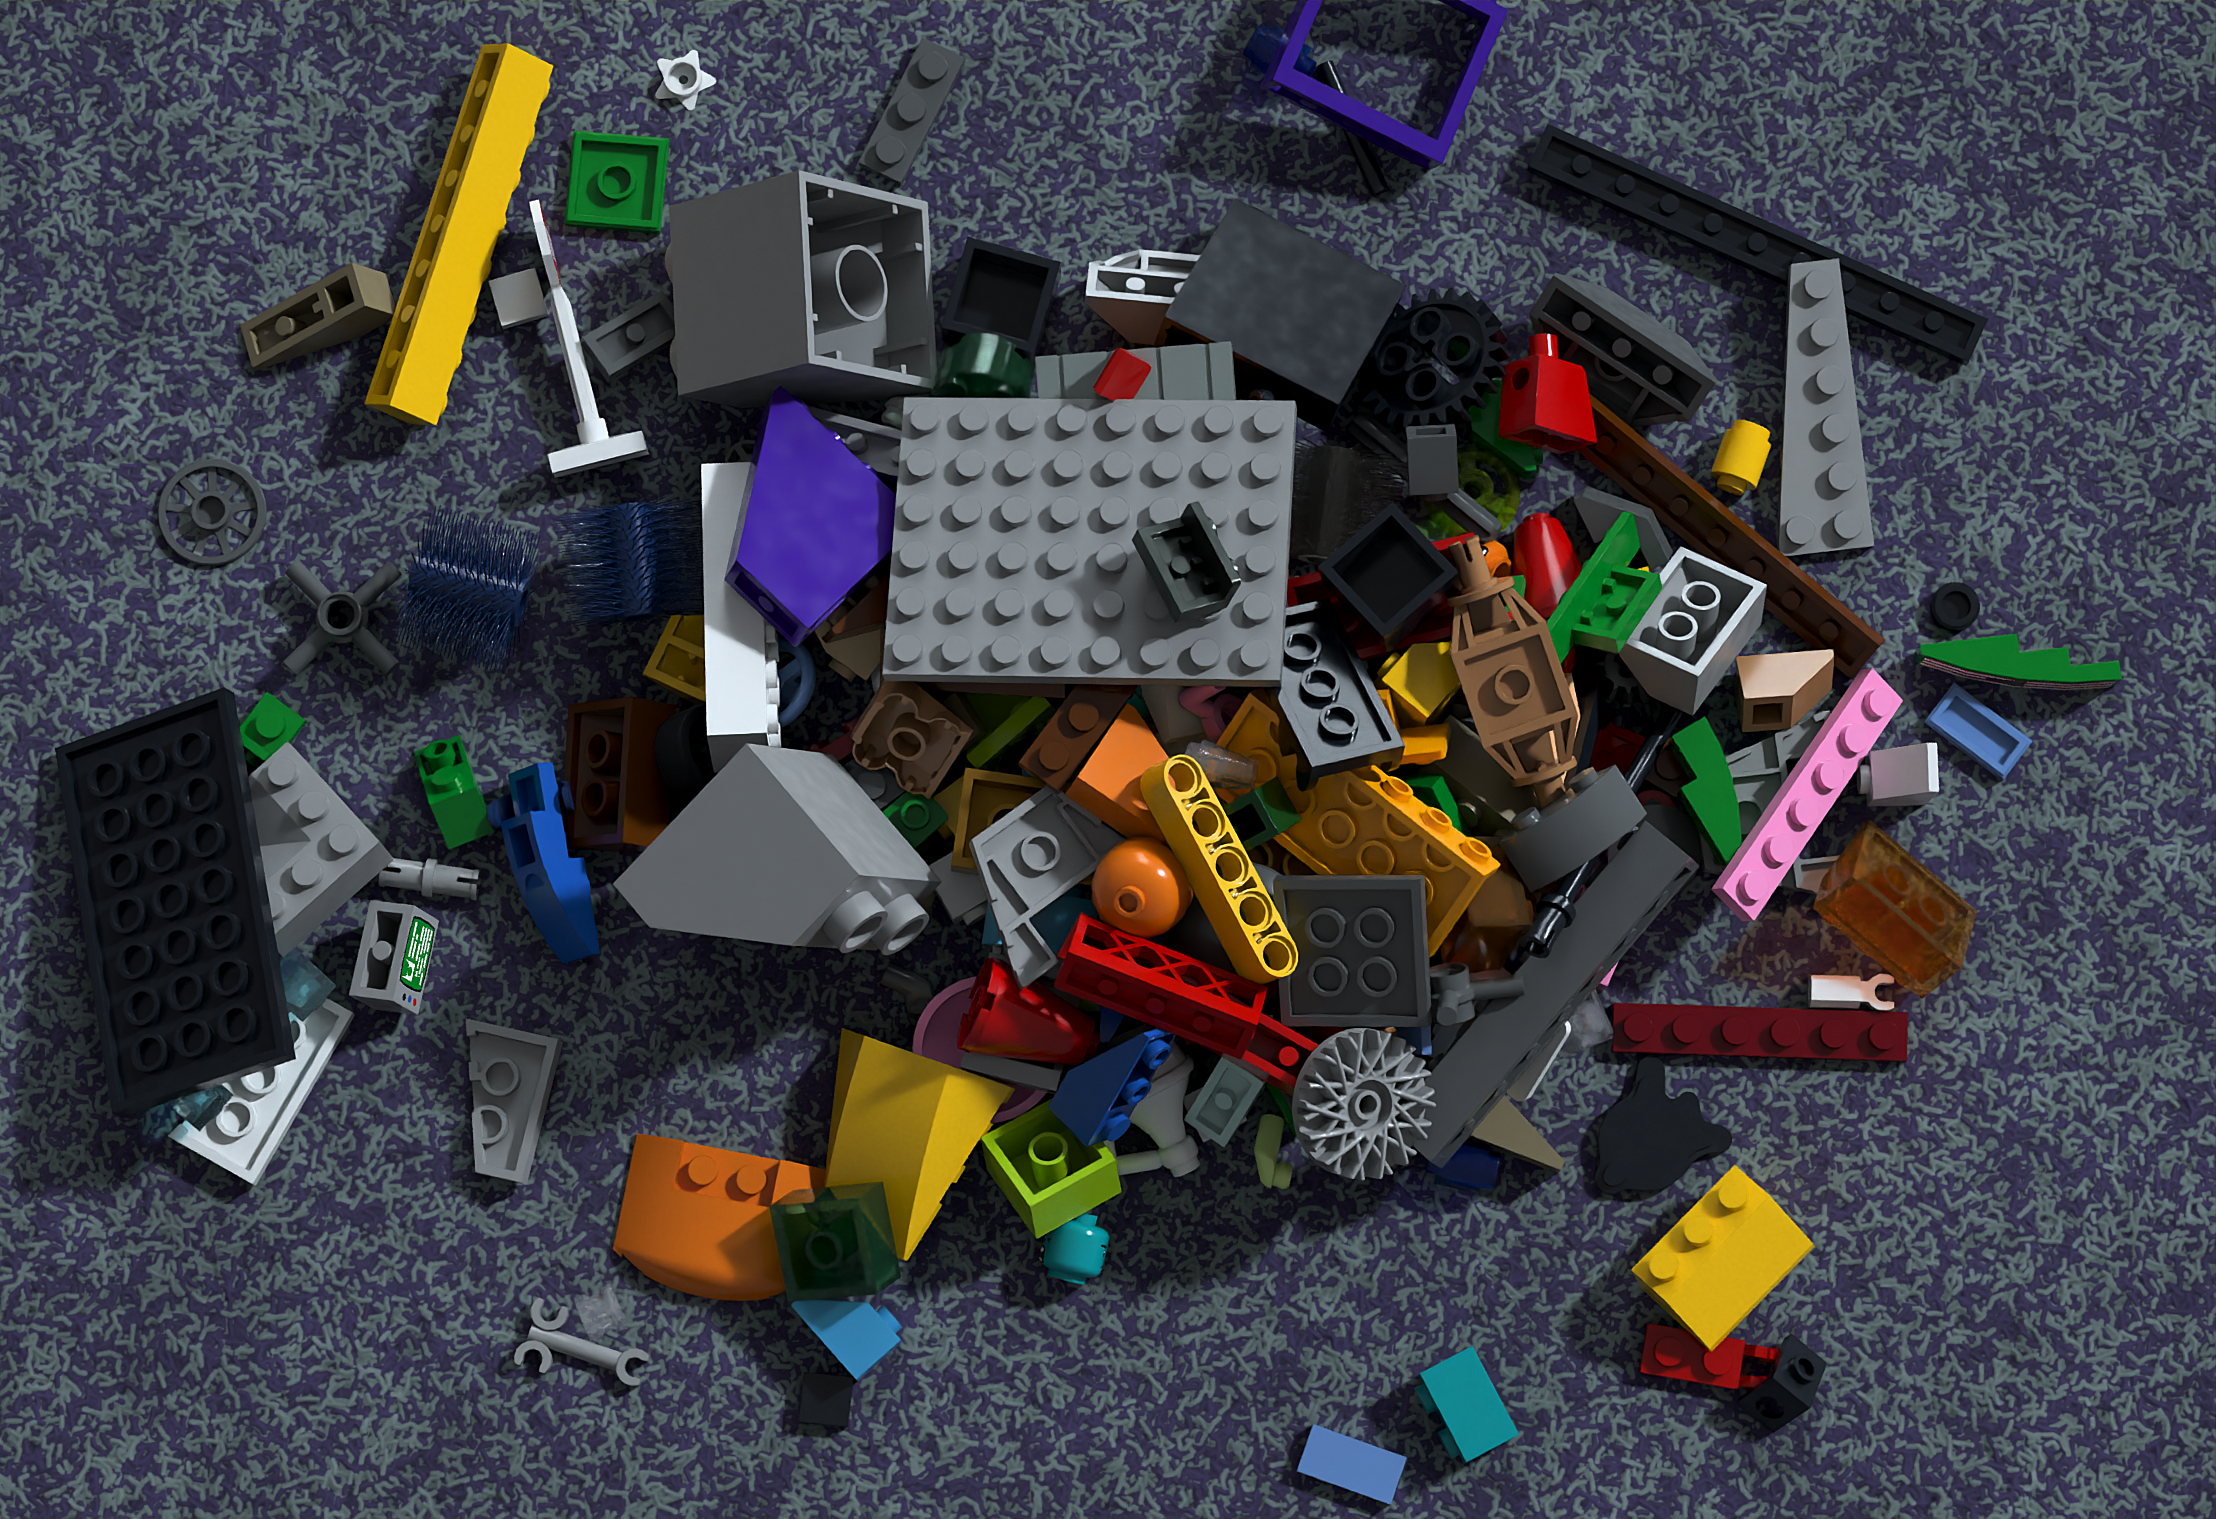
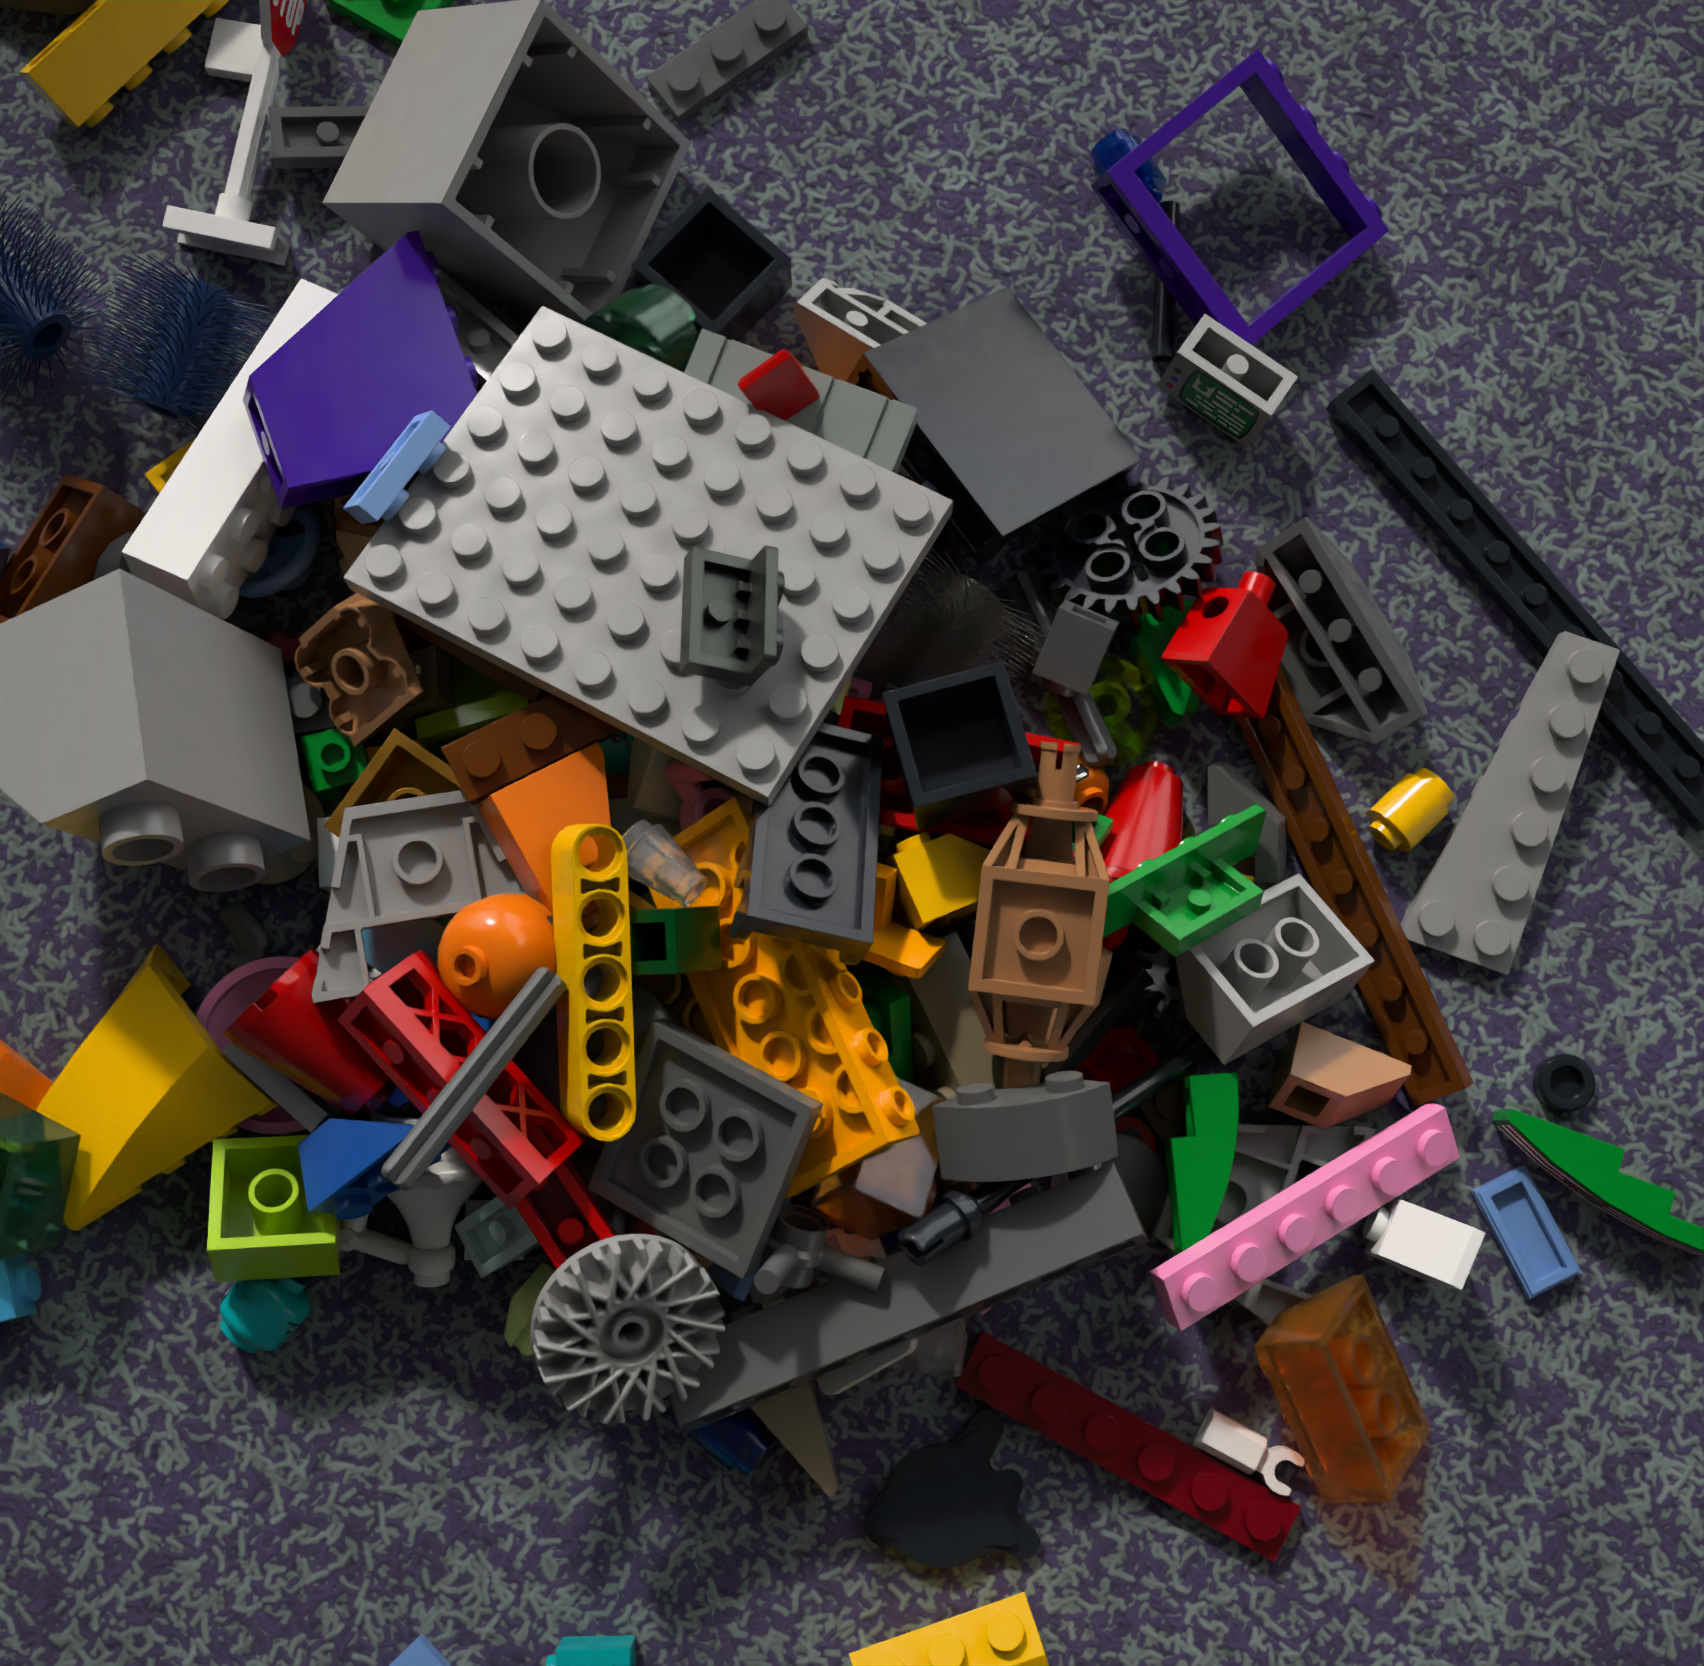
camera: 25 degrees right, 0 degrees up
(875, 577) = (414, 450): none -> light blue plate
(1178, 972) = (473, 1079): none -> dark grey axle
(1441, 191) = (1226, 380): none -> light grey brick

